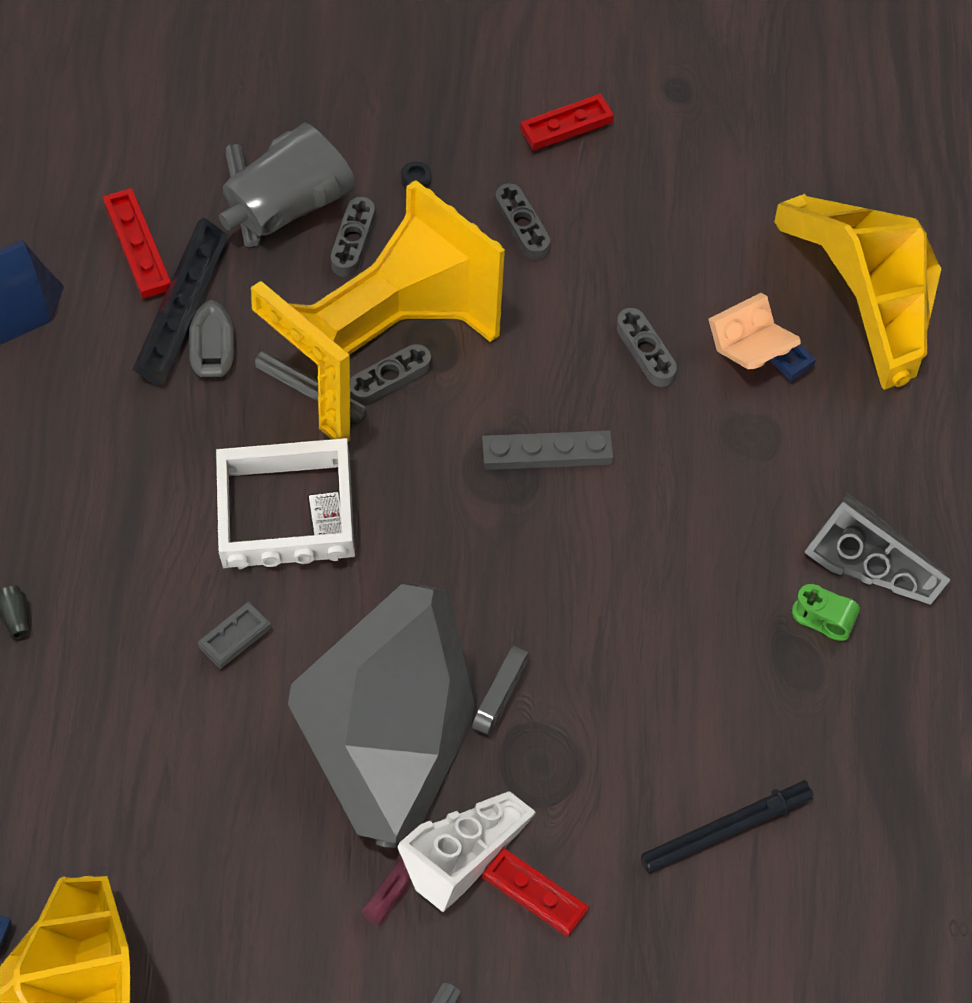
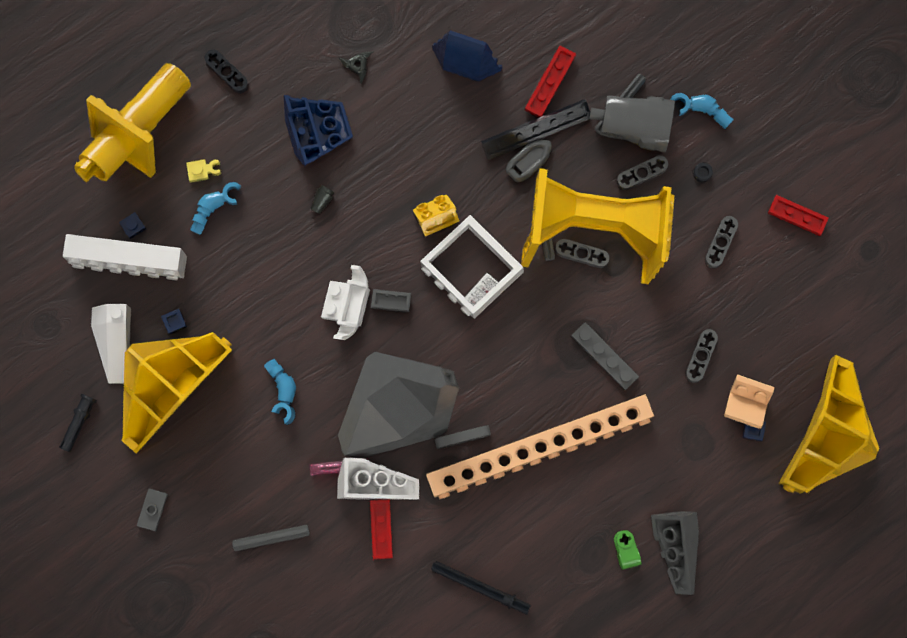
camera: 55 degrees right, 20 degrees up
(174, 492) = (436, 214): none -> yellow bracket
(183, 689) = (347, 303): none -> white plate
(227, 858) = (286, 390): none -> dark azure piece
(339, 107) = (704, 104): none -> dark azure piece
(543, 770) = (639, 405): none -> light nougat brick

